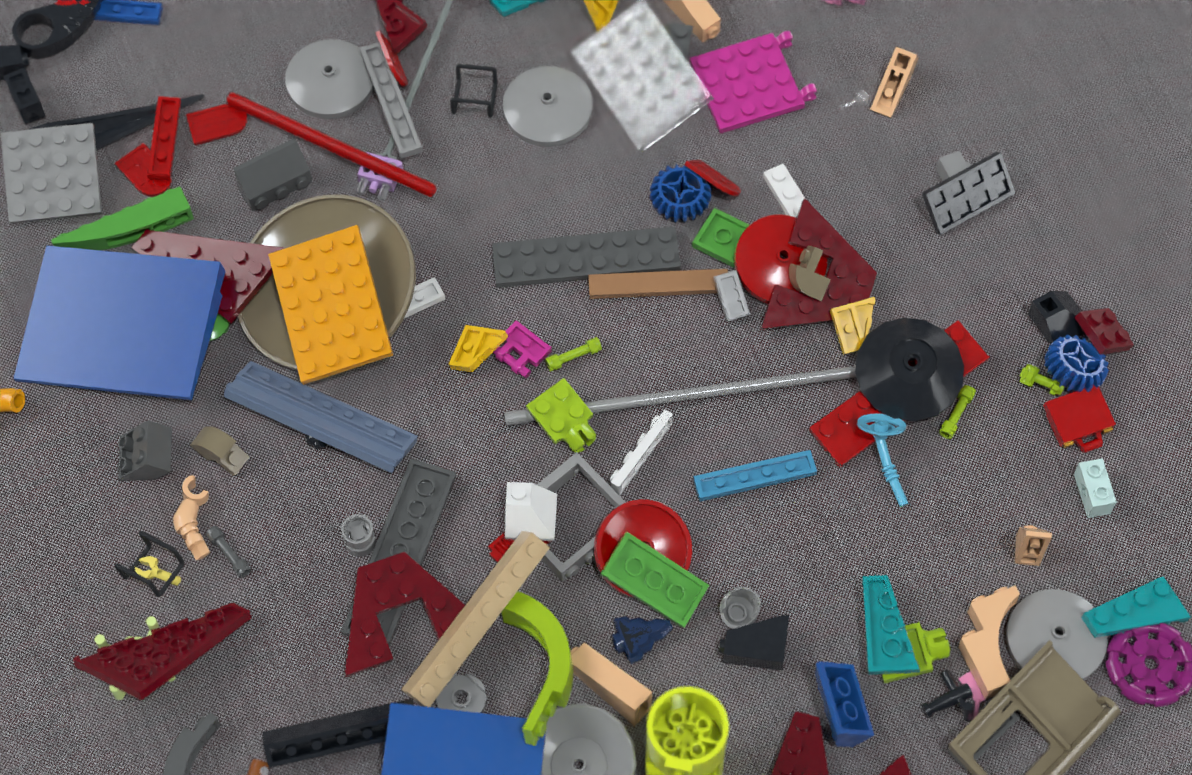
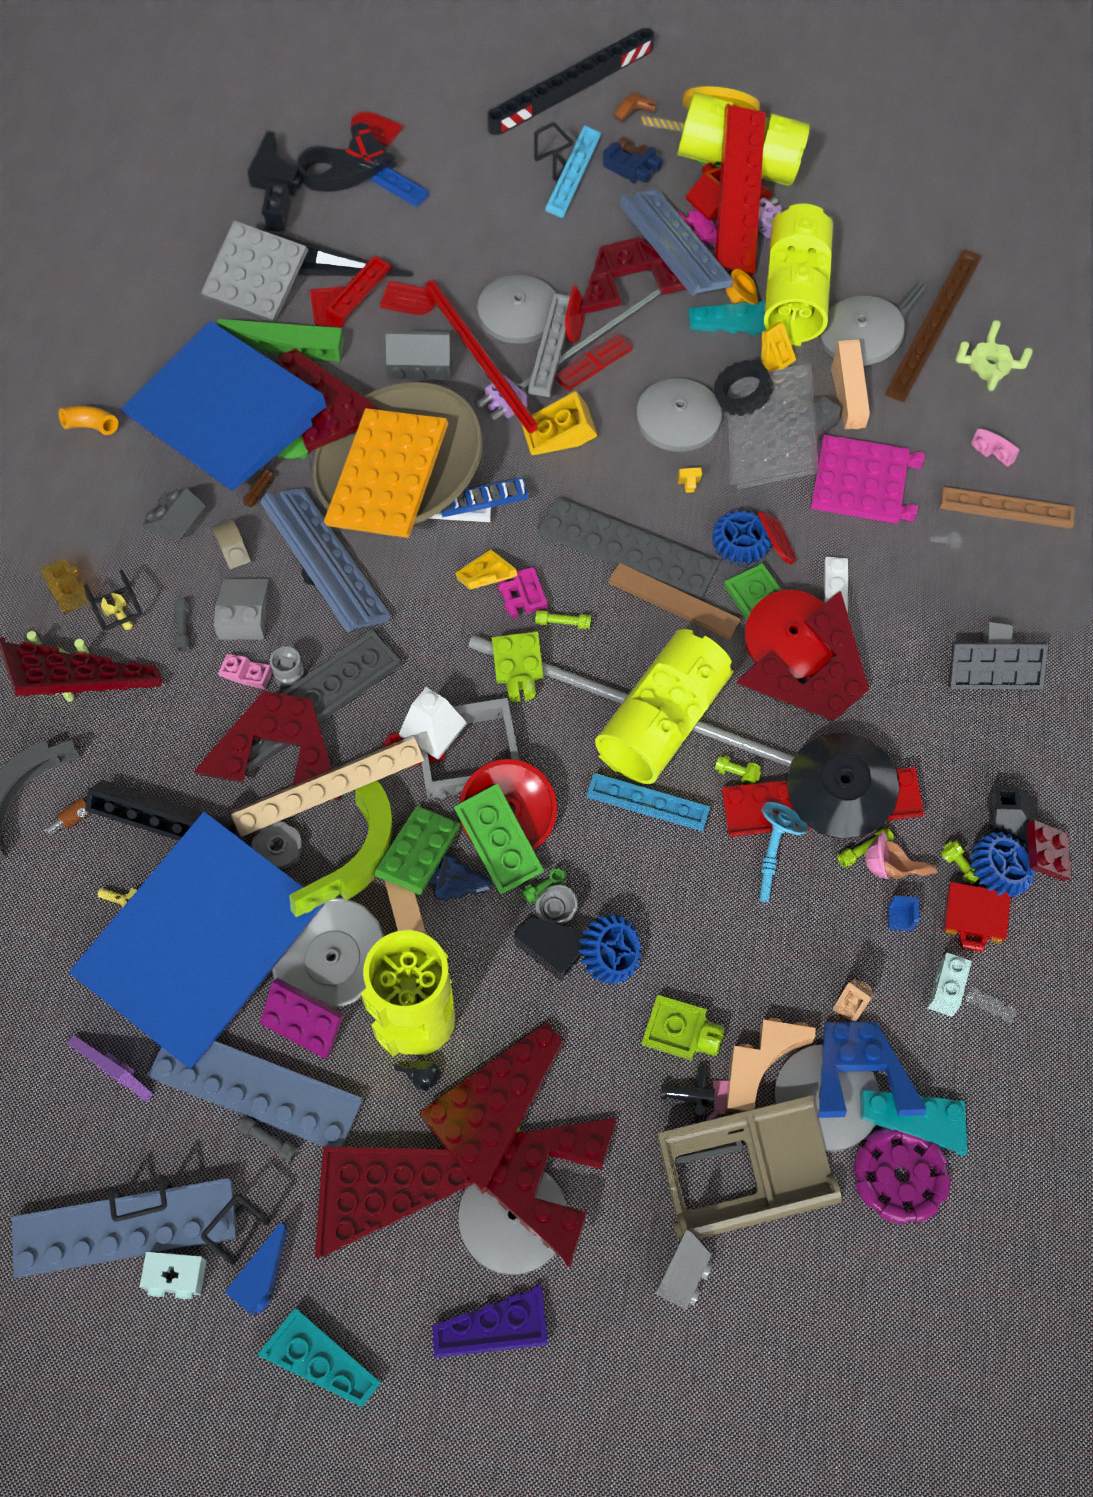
camera: 30 degrees right, 0 degrees up
(86, 581) = (63, 586): none -> clear yellow brick
(186, 518) = (169, 579): light nougat piece -> none
(206, 384) = (258, 488): none -> reddish brown axle
(274, 504) = (241, 609): none -> light grey slope
(320, 561) = (245, 672): none -> bright pink slope
(436, 95) = (593, 362): none -> red tile
(436, 272) = (487, 496): none -> tile
(453, 171) = (561, 426): none -> yellow slope
(490, 104) = (609, 372): black piece -> none
(592, 629) = (418, 850): none -> bright green plate
(599, 163) = (689, 478): none -> yellow tile
(609, 66) = (754, 400): none -> black tyre
(646, 444) = (570, 726): white plate -> none
(721, 384) = (664, 706): none -> neon yellow cylinder
(722, 587) = (531, 894): none -> bright green bar
(731, 296) = (730, 638): light grey plate -> none
(804, 276) = (799, 661): dark tan brick -> none
(810, 617) = (614, 955): none -> blue gear
(824, 402) = (750, 773): none -> lime bar
(843, 703) = (589, 1040): blue slope -> none
(853, 323) = (819, 719): yellow wing -> none
(885, 43) = (1007, 507): none -> medium nougat tile
(886, 638) = (668, 1002): teal wing -> none
(894, 82) = (992, 540): light nougat slope -> none
(984, 412) = (889, 860): none -> piece
(1023, 450) = (903, 913): none -> blue panel
(1059, 581) = (862, 1048): none -> blue wing
(1136, 486) = (991, 1005): none -> clear axle

